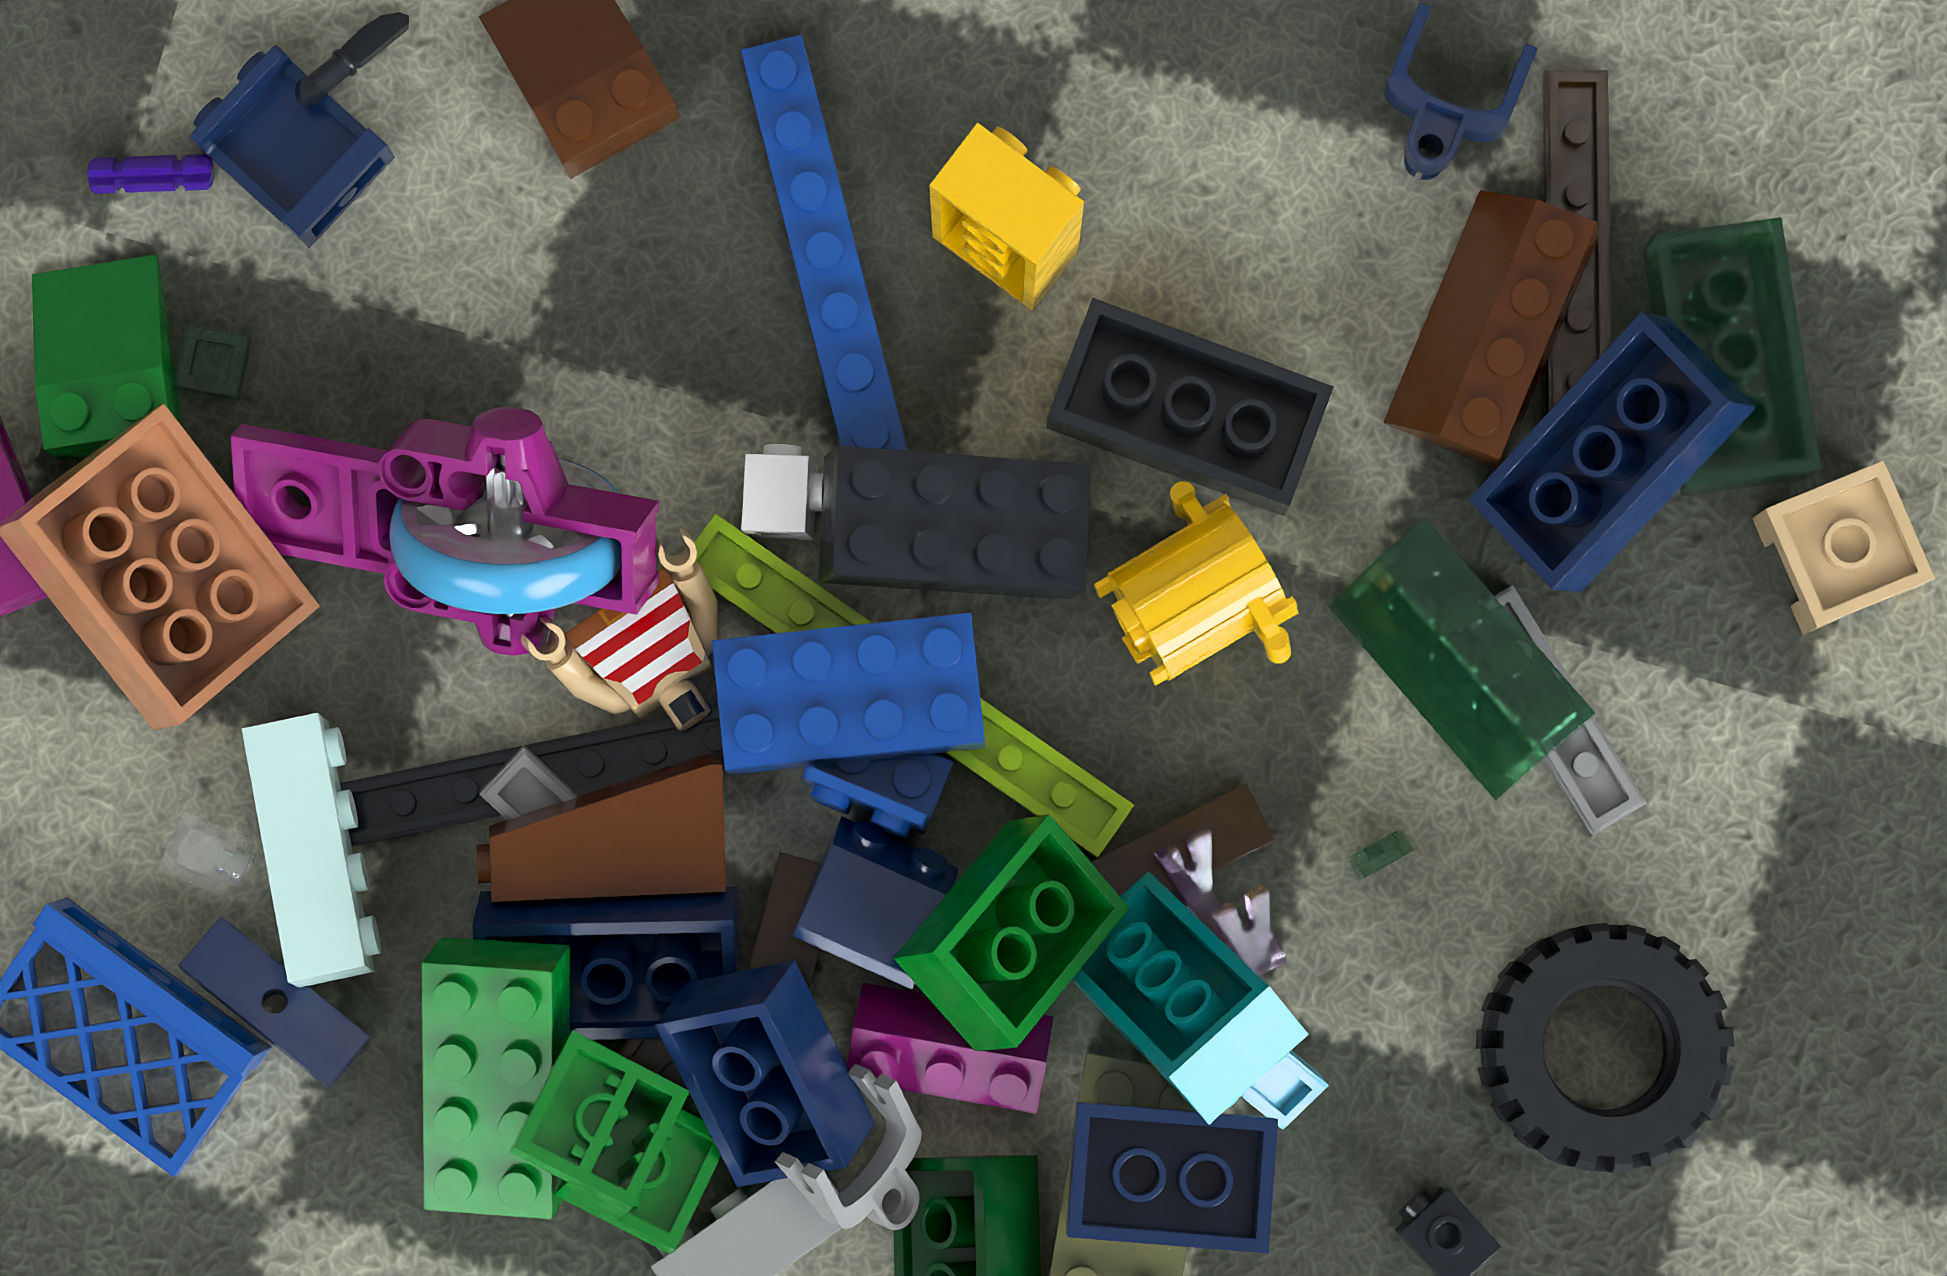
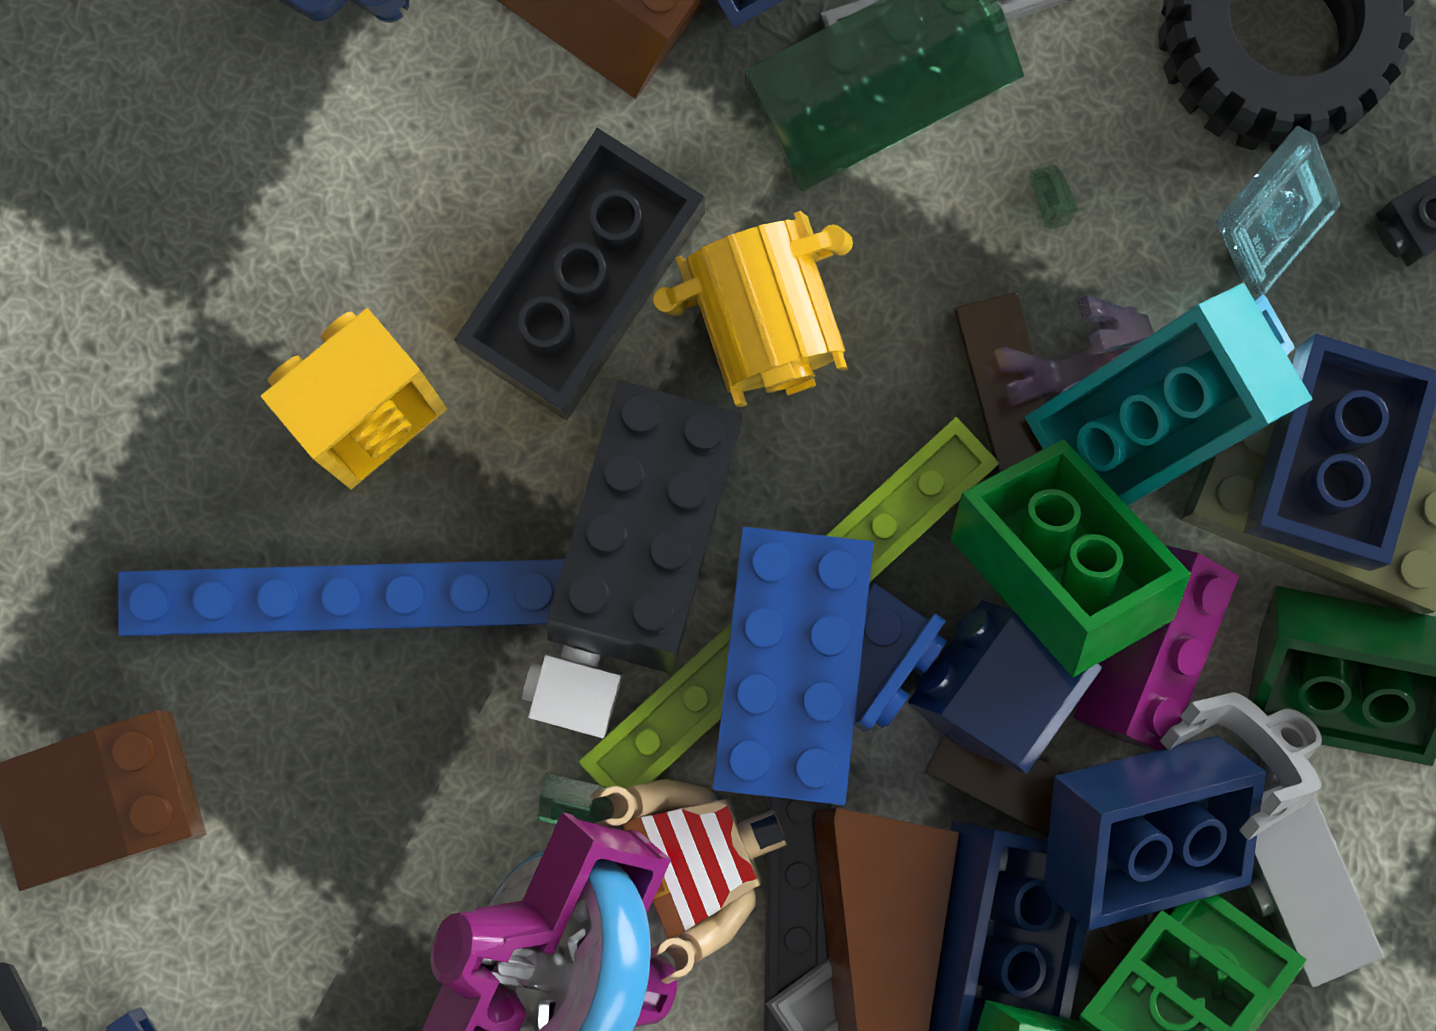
camera: 80 degrees left, 0 degrees up
(676, 511) = (571, 797): none -> clear green tile
(1411, 1079) = (1279, 211): none -> clear light blue tile

